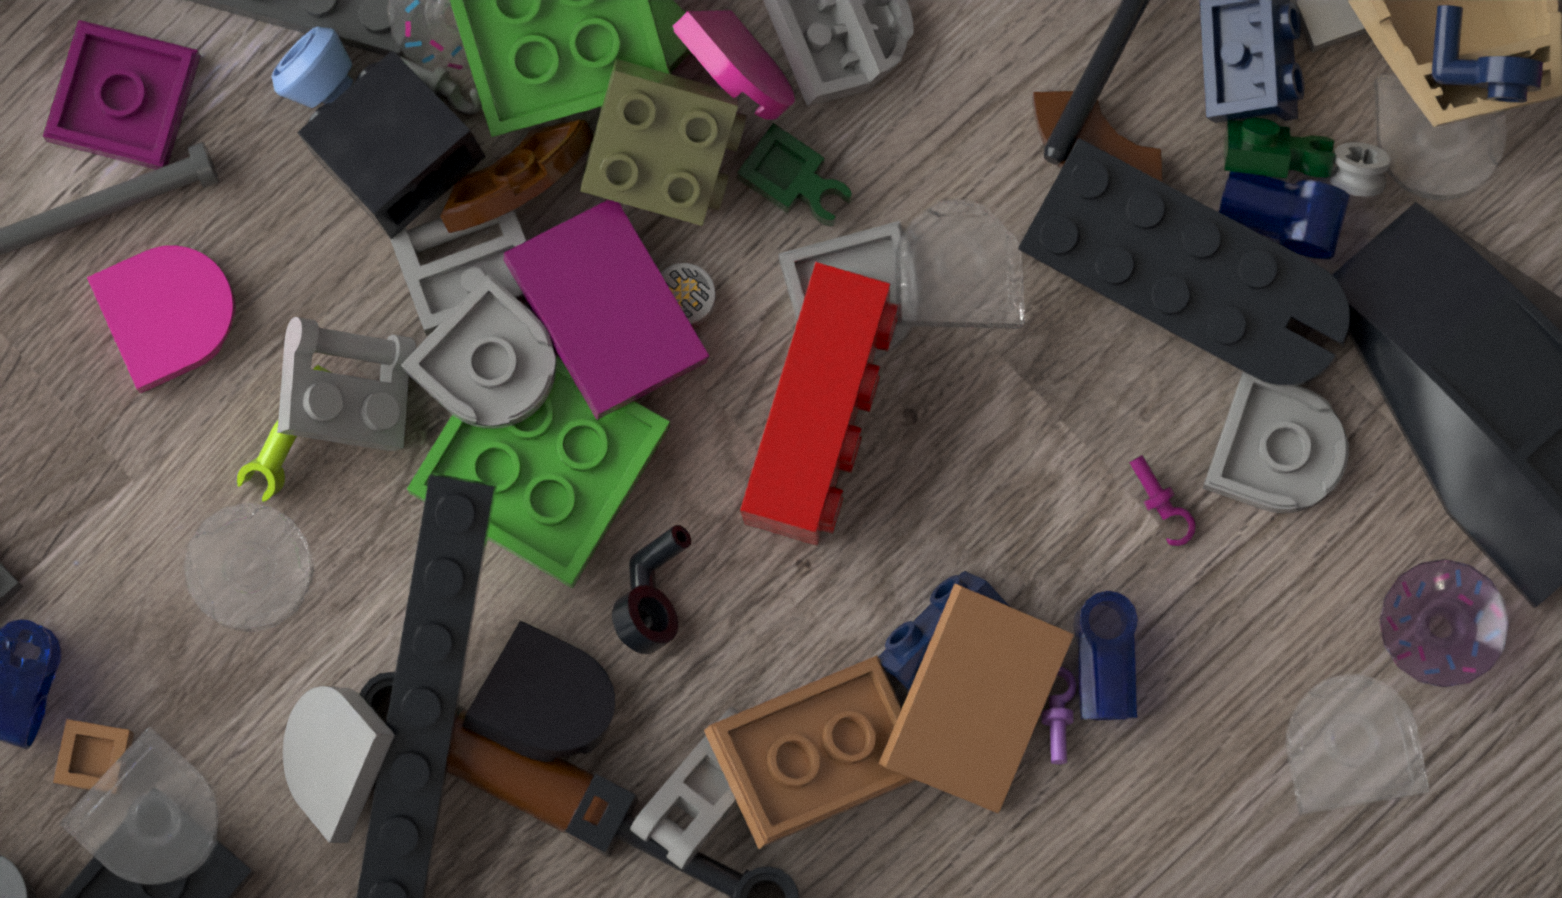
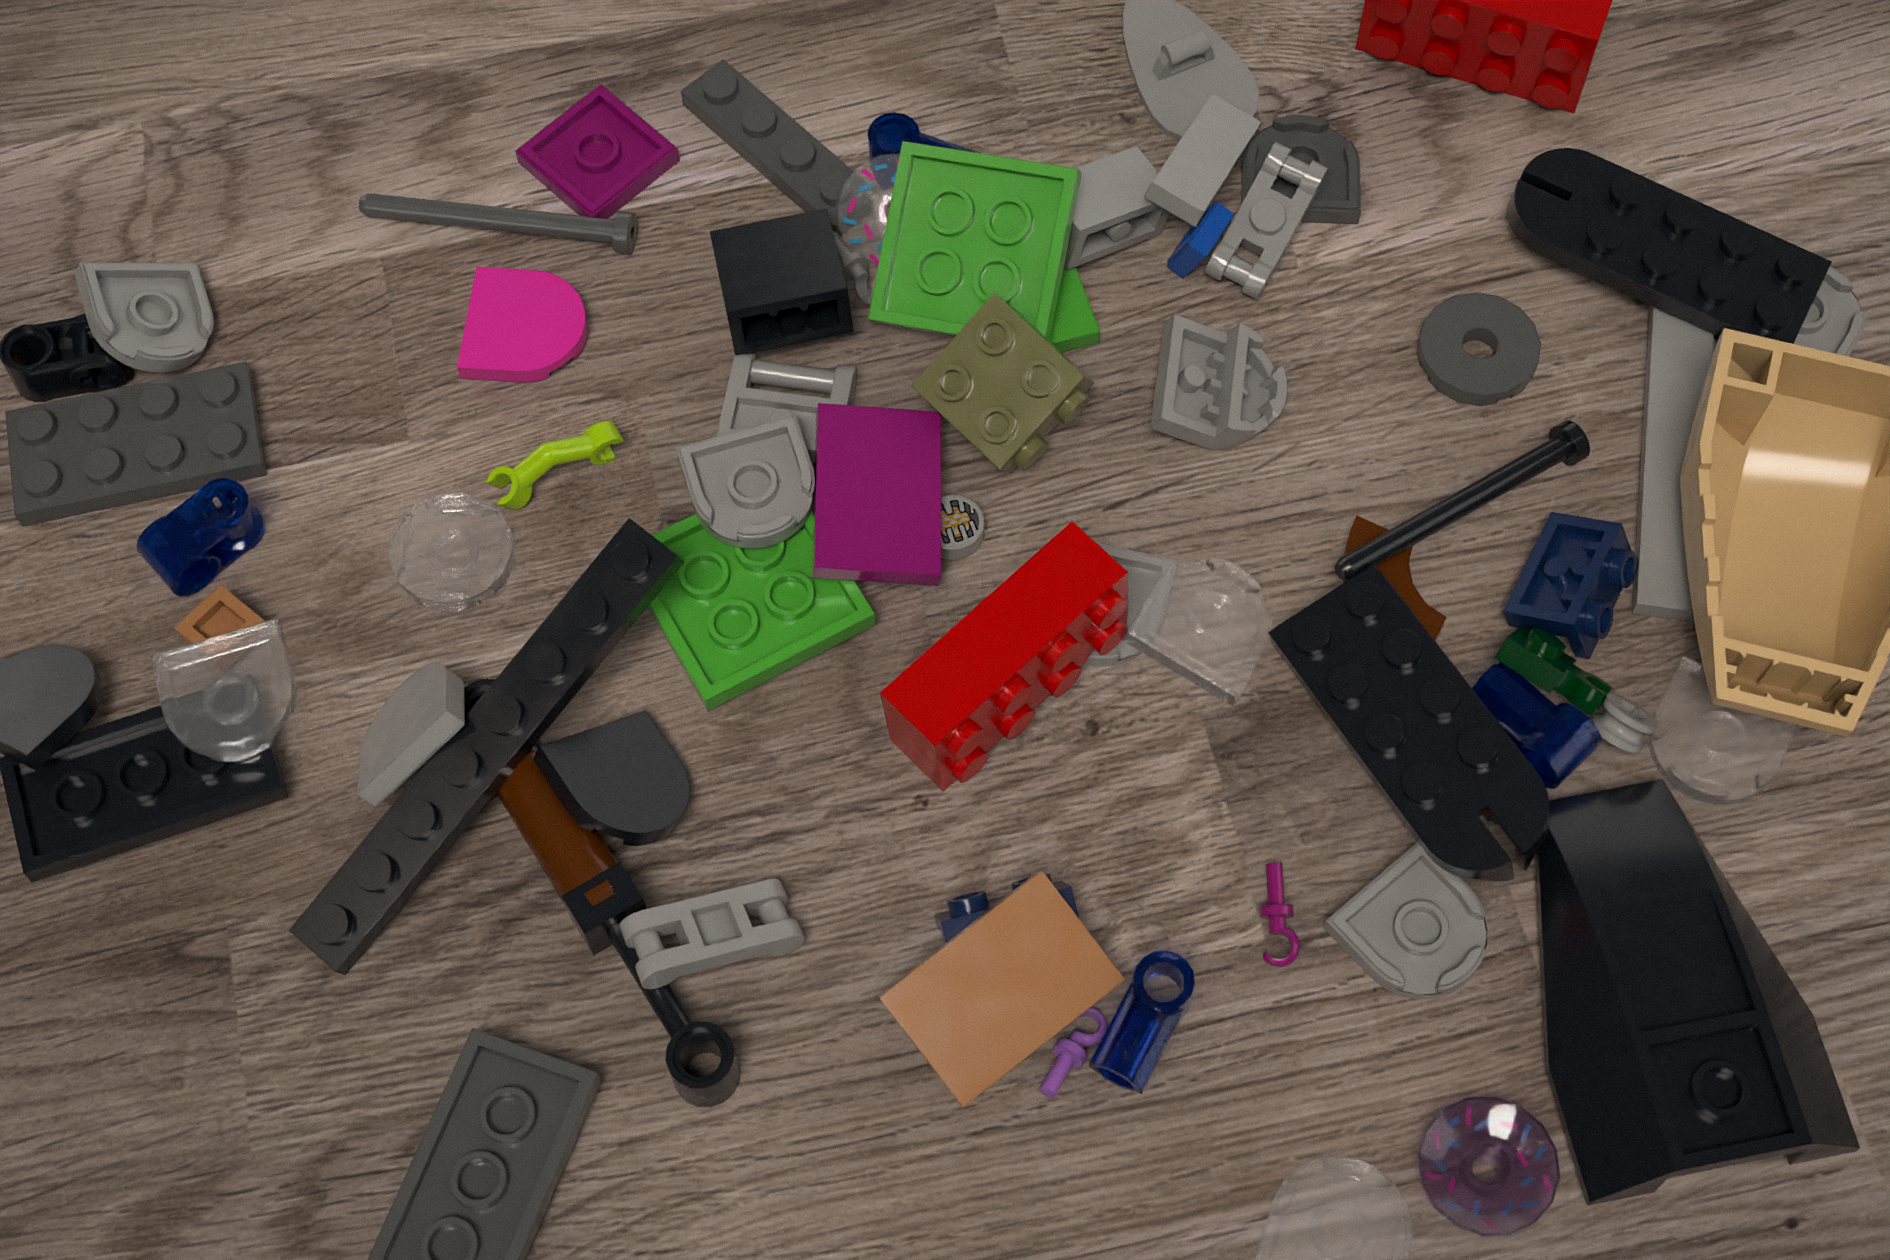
camera: 30 degrees right, 15 degrees down
(314, 69) = (757, 197): light blue cone -> none
(340, 405) = (606, 456): light grey plate -> none
(518, 176) = (863, 356): reddish brown tile -> none
(645, 615) = (752, 760): black plate -> none
(736, 59) = (1110, 350): dark pink tile -> none
(787, 171) = (1103, 473): dark green plate -> none
(810, 751) = (822, 952): medium nougat tile -> none
(1504, 76) = (1802, 676): dark blue plate -> none

